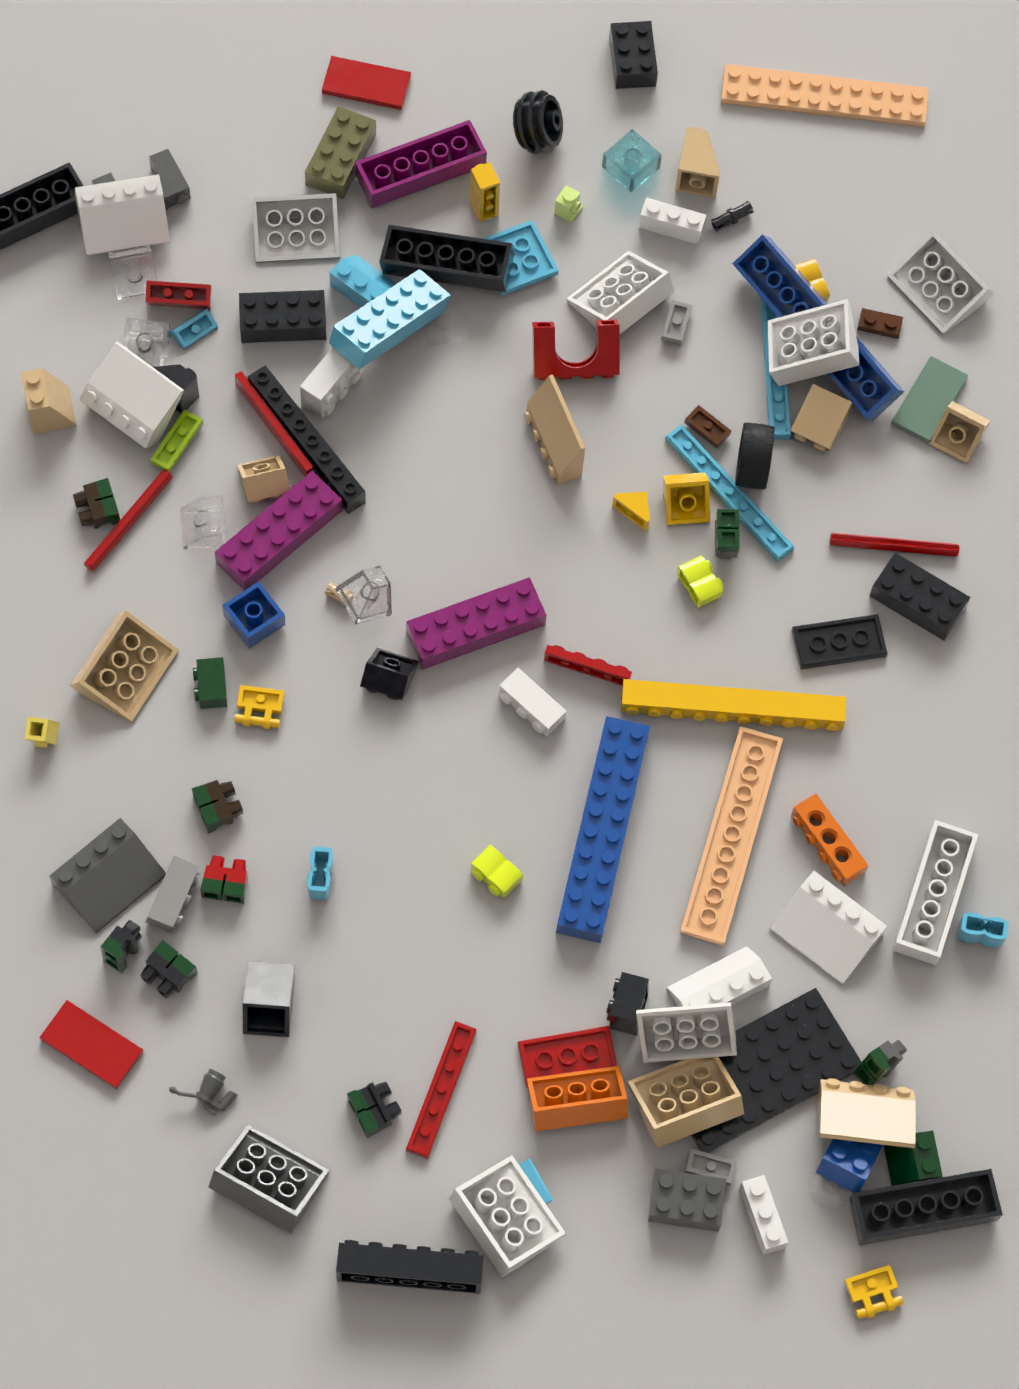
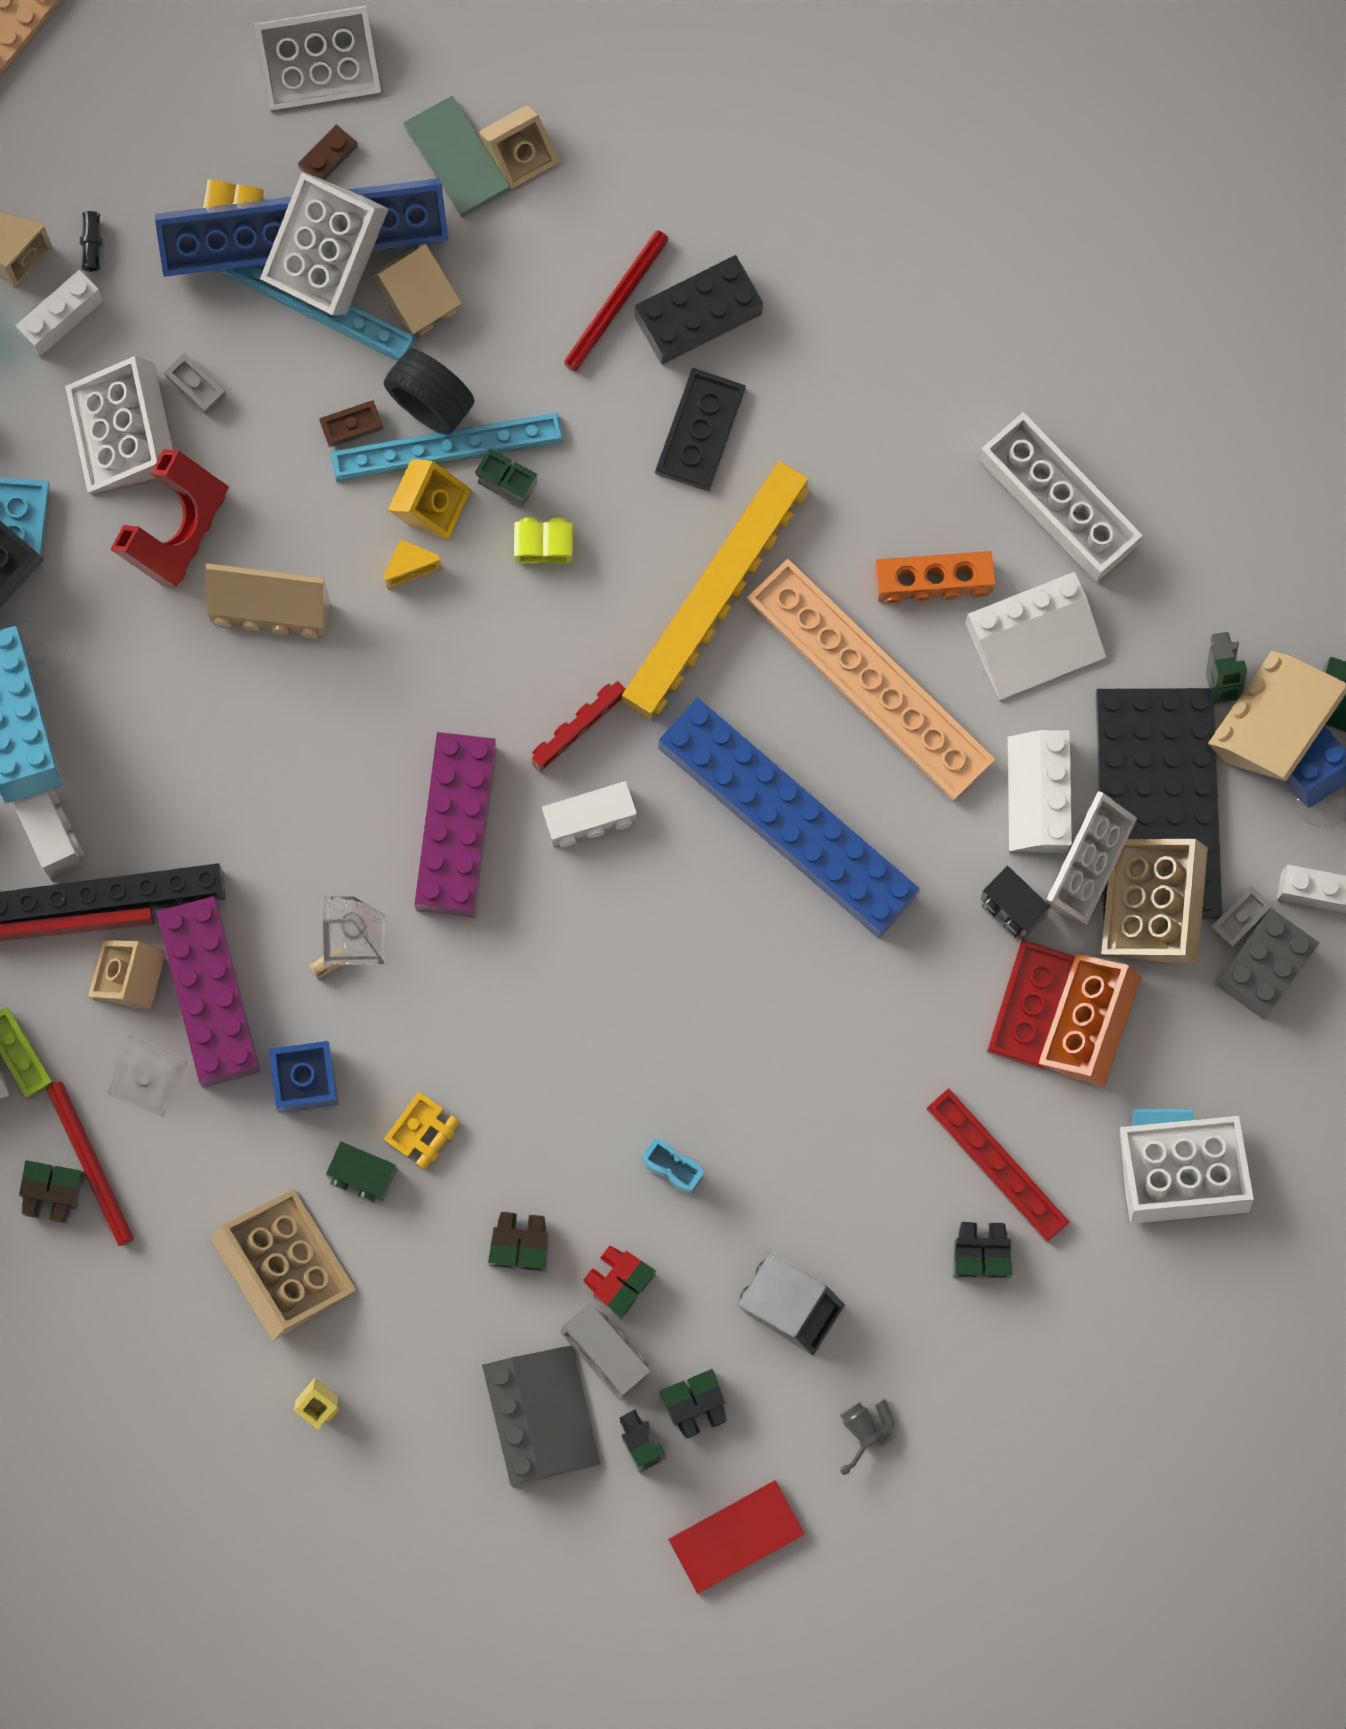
camera: 60 degrees left, 10 degrees up
(268, 1178) = (1004, 1413): dark grey slope -> none
(388, 674) = (463, 958): black slope -> none
(409, 1267) = (1193, 1308): black brick -> none
(496, 872) = (775, 966): neon yellow brick -> none
(987, 931) = (1132, 470): medium azure brick -> none

